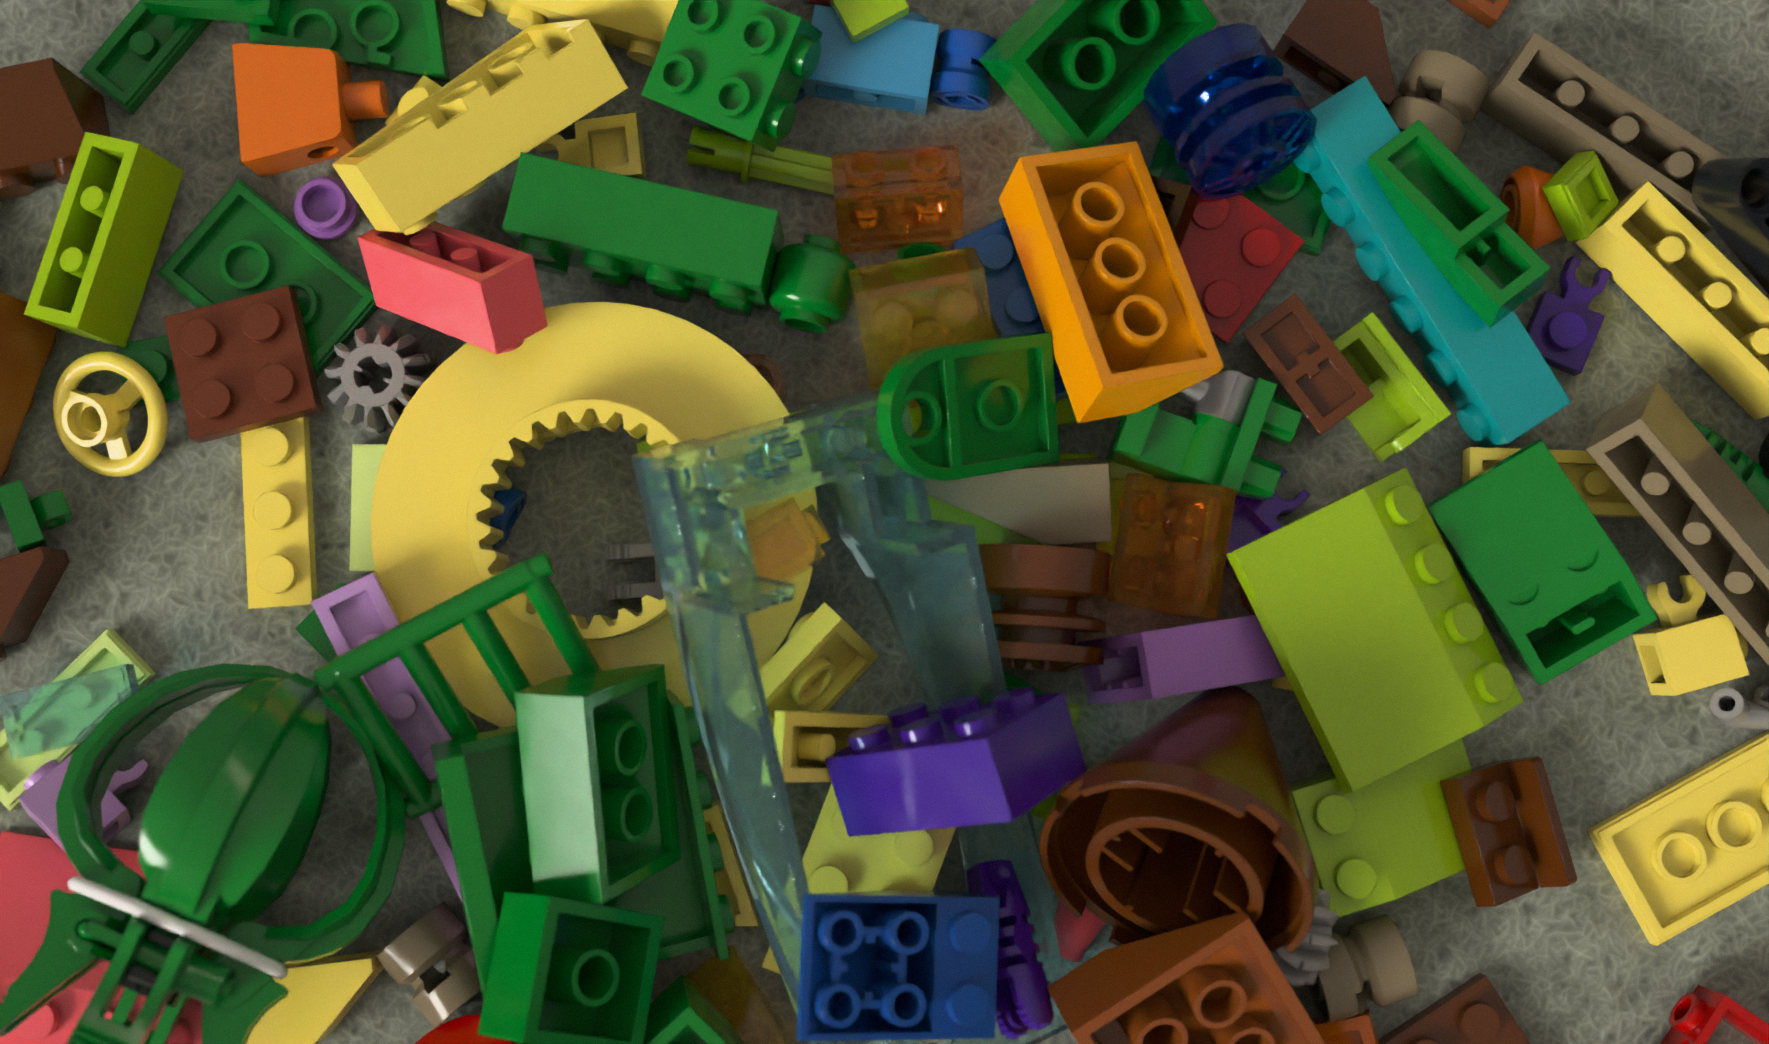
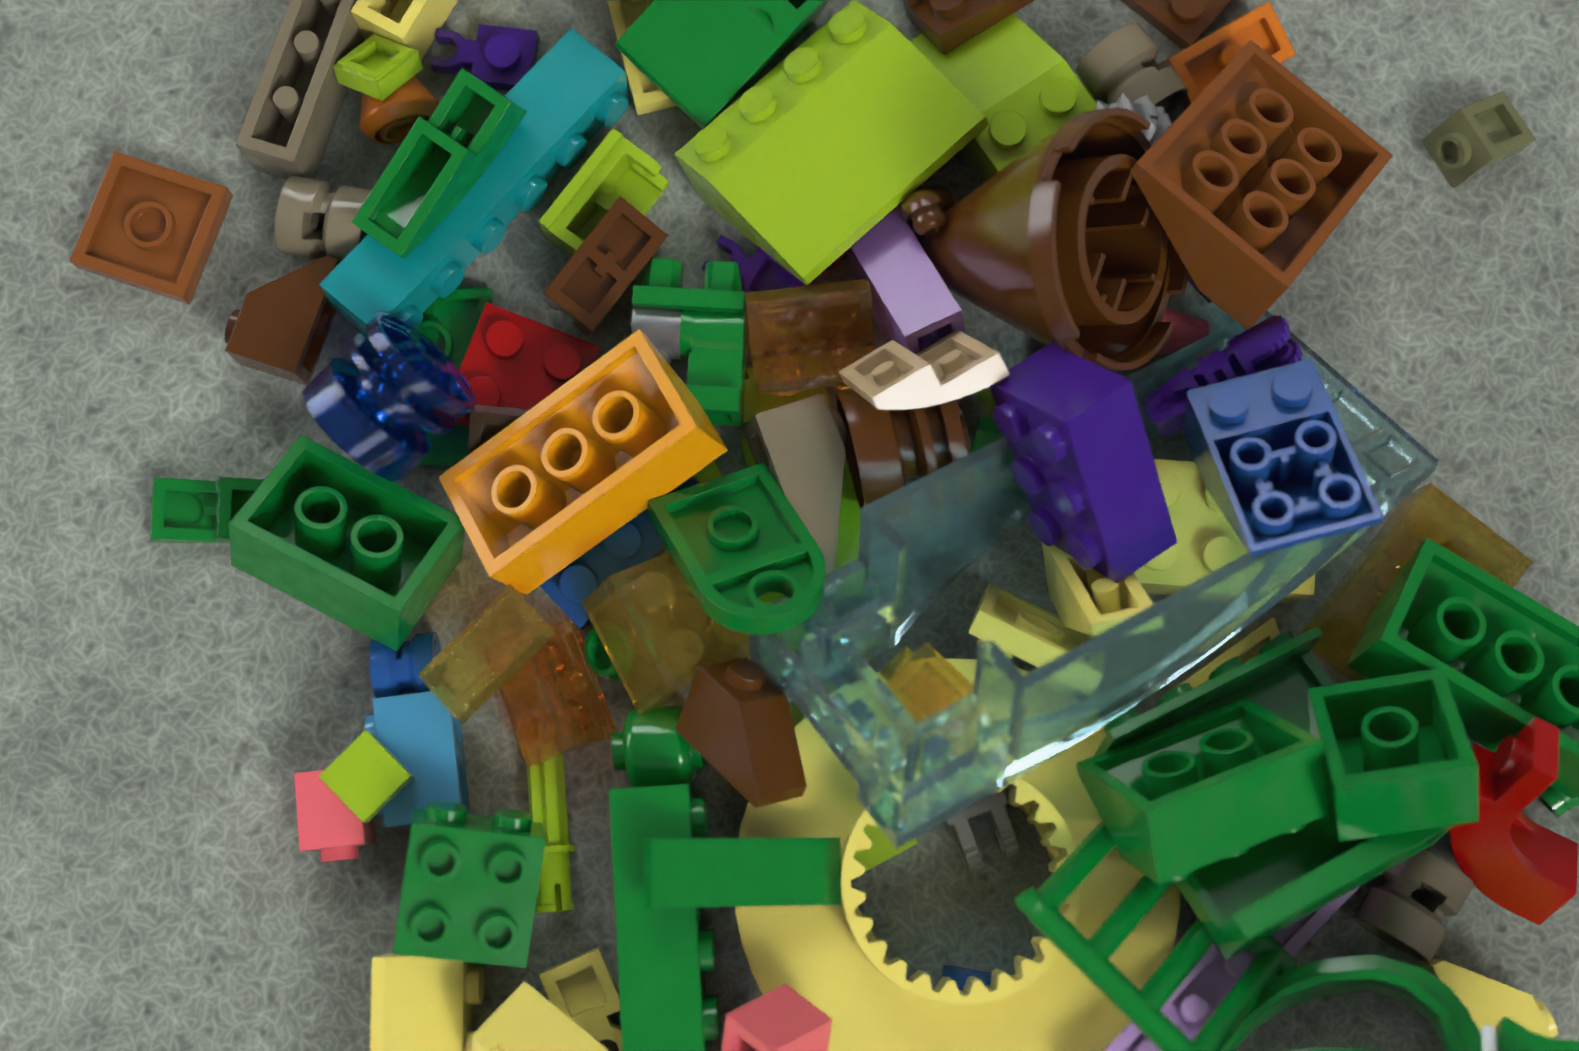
camera: 105 degrees left, 5 degrees down
(661, 312) = (741, 872): none -> green tile
(795, 358) = (744, 730): none -> reddish brown slope
(948, 139) = (486, 653): none -> clear yellow tile
(1087, 641) = (940, 373): none -> tan slope
(1276, 702) = (927, 208): none -> reddish brown arm

